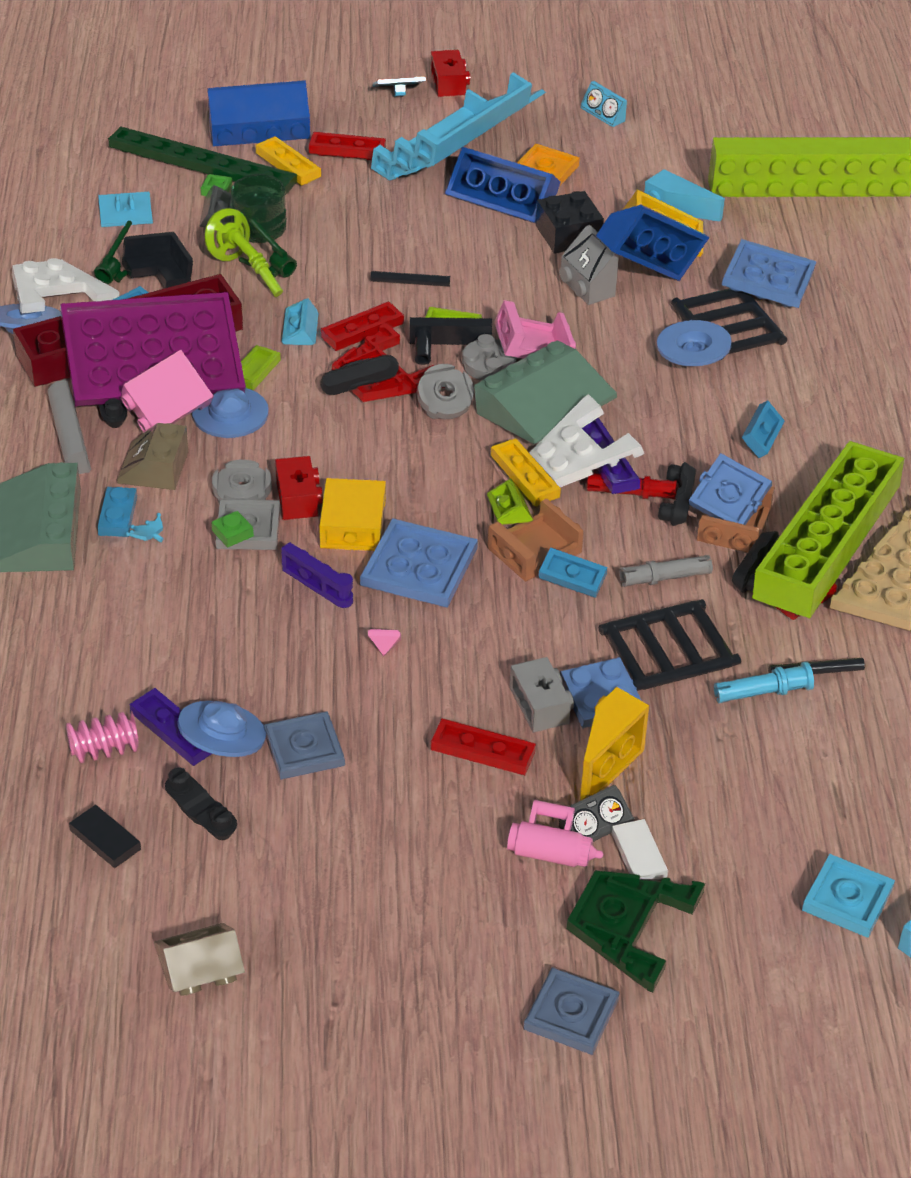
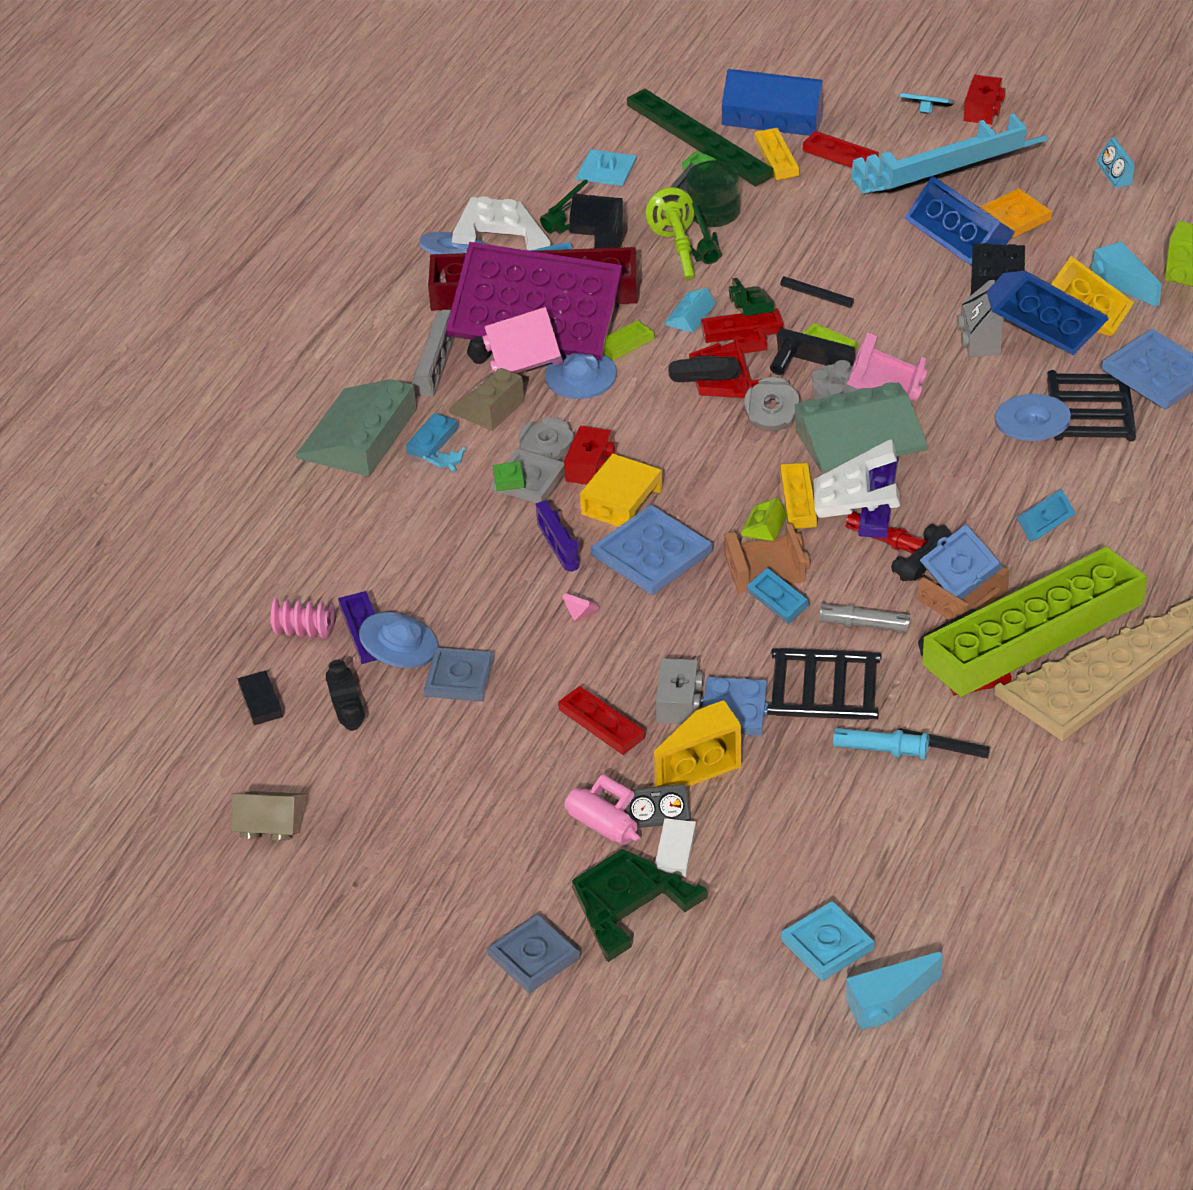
camera: 30 degrees right, 0 degrees up
(357, 299) = (750, 300): none -> dark green bracket

